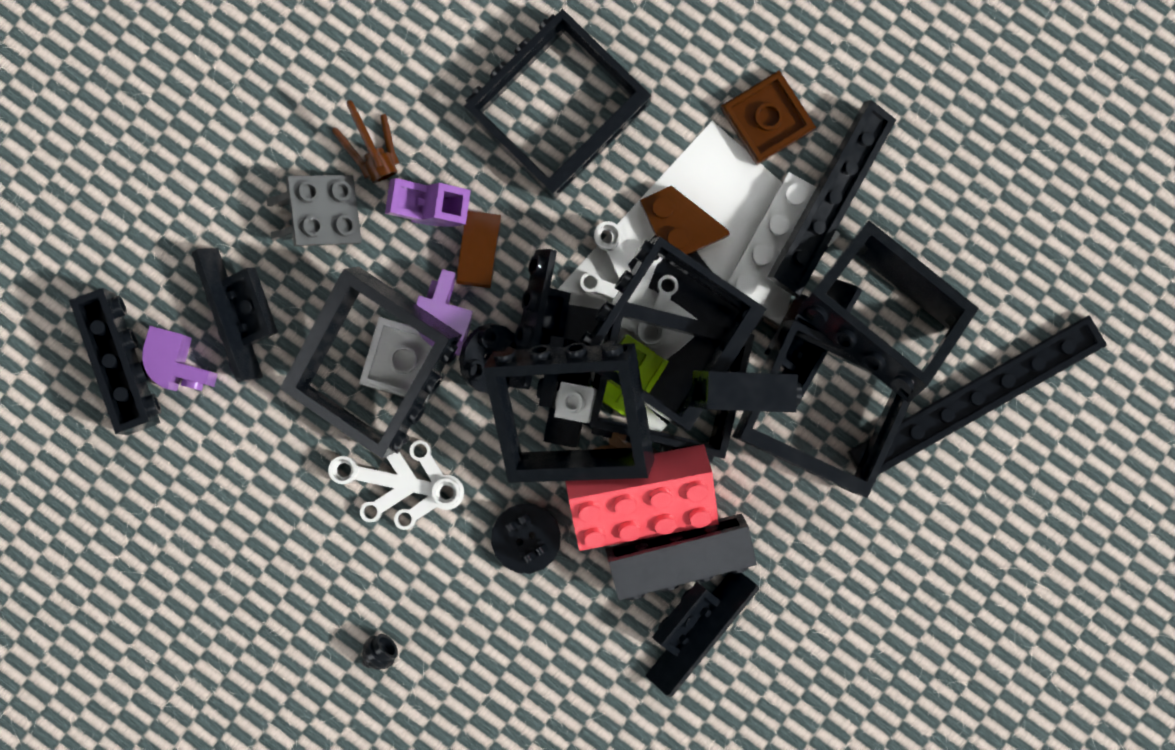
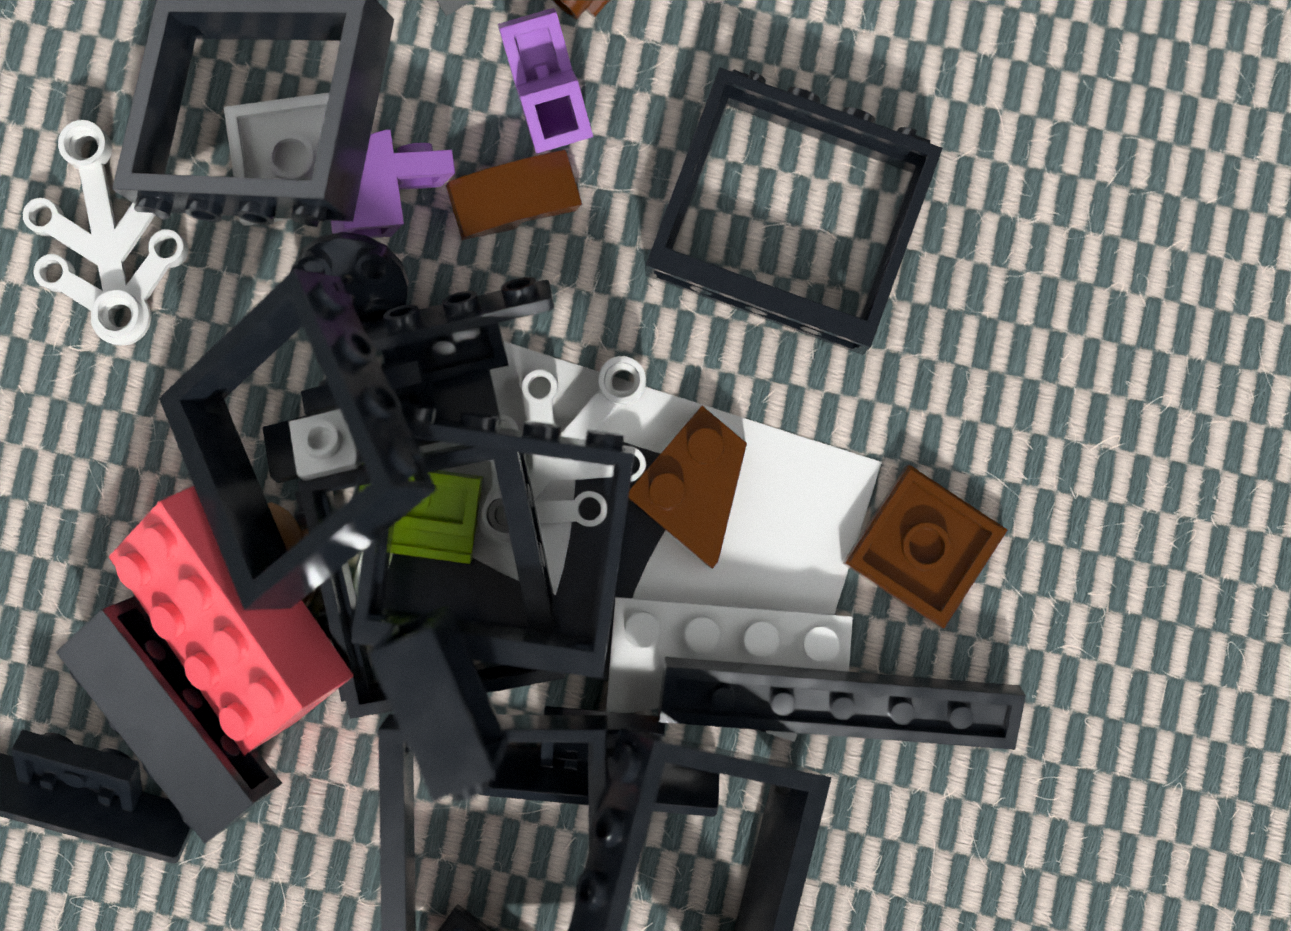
camera: 65 degrees right, 0 degrees up
(534, 552) = (118, 445): black plate -> none

